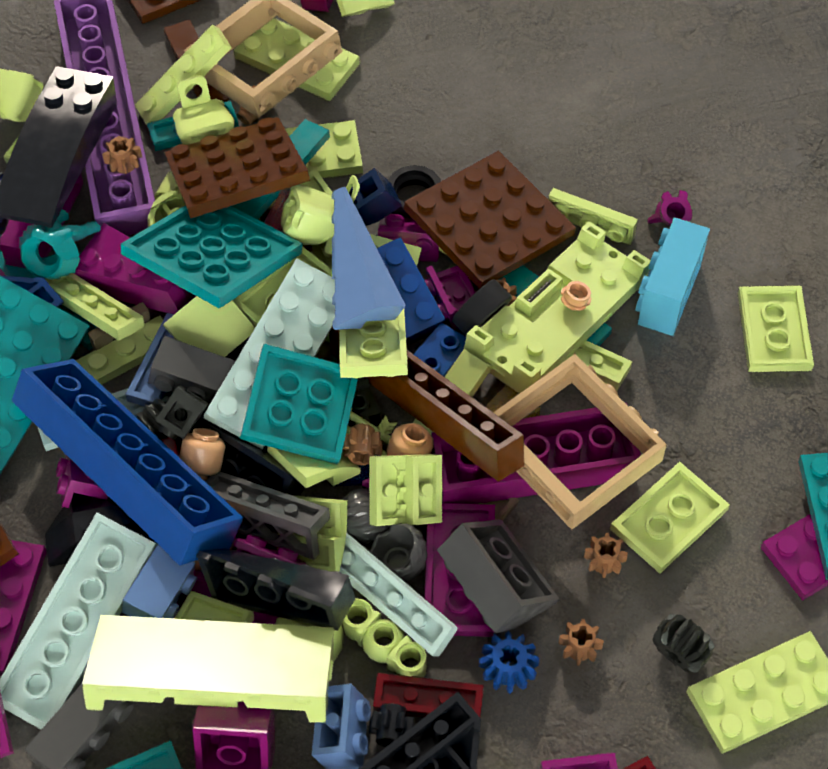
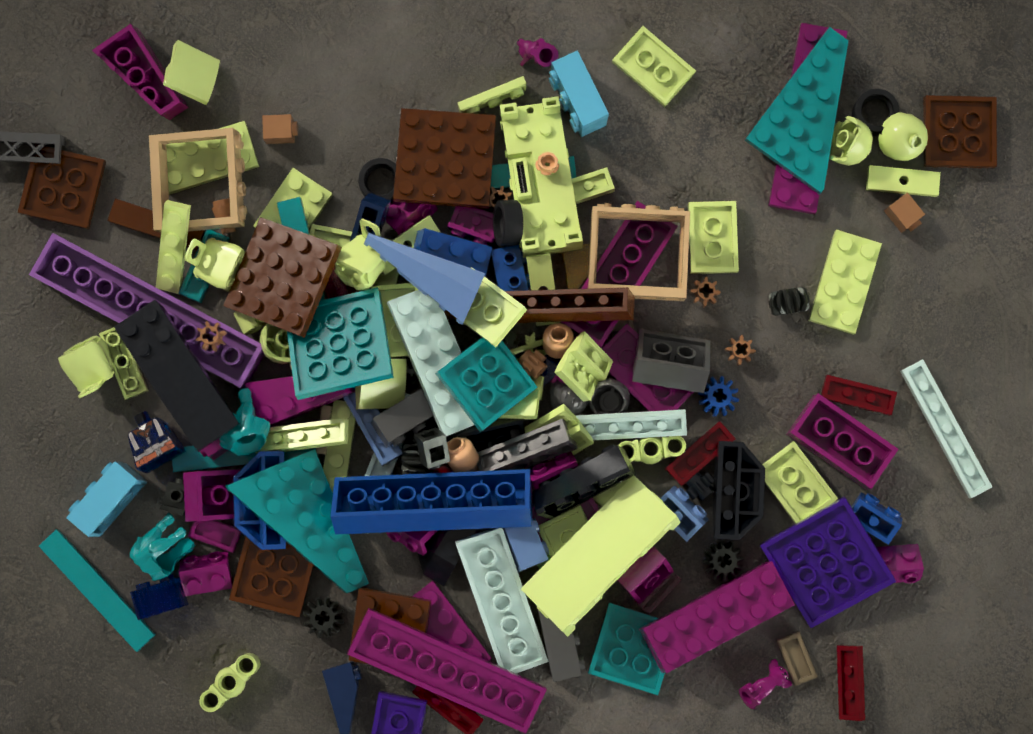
camera: 50 degrees left, 25 degrees up
(378, 83) = (279, 129): none -> medium nougat brick

